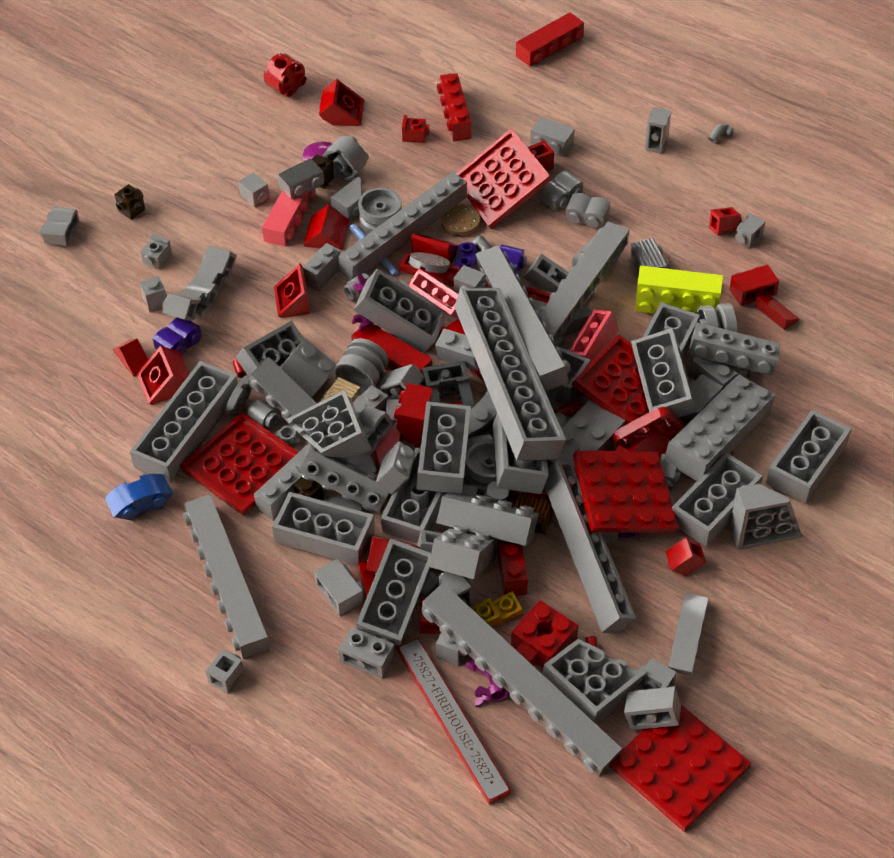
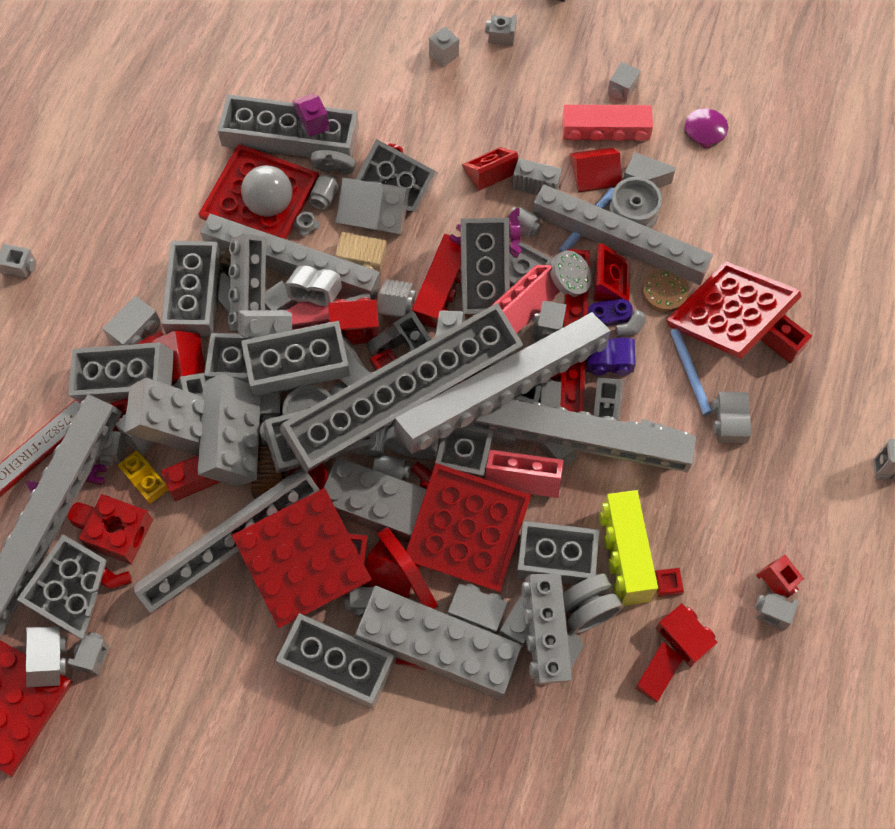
camera: 70 degrees right, 15 degrees up
(131, 355) = (362, 59): red slope -> none
(139, 496) = (194, 128): blue brick -> none
(162, 375) = (347, 91): red slope -> none
(178, 335) = (396, 86): dark purple brick -> none
(189, 387) = (312, 114): none -> magenta slope
(204, 287) = (461, 85): light grey brick -> none
(226, 577) = (121, 226): light grey brick -> none
(247, 449) = (266, 191): none -> light grey piece
(280, 389) = (333, 202): light grey brick -> none
(284, 74) = (803, 49): red brick -> none
(300, 178) = (640, 113): light grey brick -> none
(327, 168) = (675, 132): dark brown brick -> none
(333, 427) = (288, 250): light grey wedge -> none
(341, 105) = (787, 120): red slope -> none
(347, 157) = (699, 146): light grey brick -> none
(362, 363) = (404, 255): light grey wheel -> none
(367, 652) = (57, 373): light grey brick -> none
(414, 130) = (784, 201): red brick -> none
(455, 107) = (838, 230): red brick -> none
(537, 225) = (691, 372): none -> light blue bar
(556, 135) = (838, 346): light grey brick -> none
(560, 190) = (753, 378): light grey brick -> none
(648, 254) = (679, 505): light grey brick -> none
(663, 373) = (474, 557): light grey brick -> none
(685, 557) = (248, 646): red brick -> none
(688, 634) = (152, 672): light grey slope -> none
(762, 517) = (309, 704): light grey wedge -> none
(808, 456) = (429, 754): light grey brick -> none

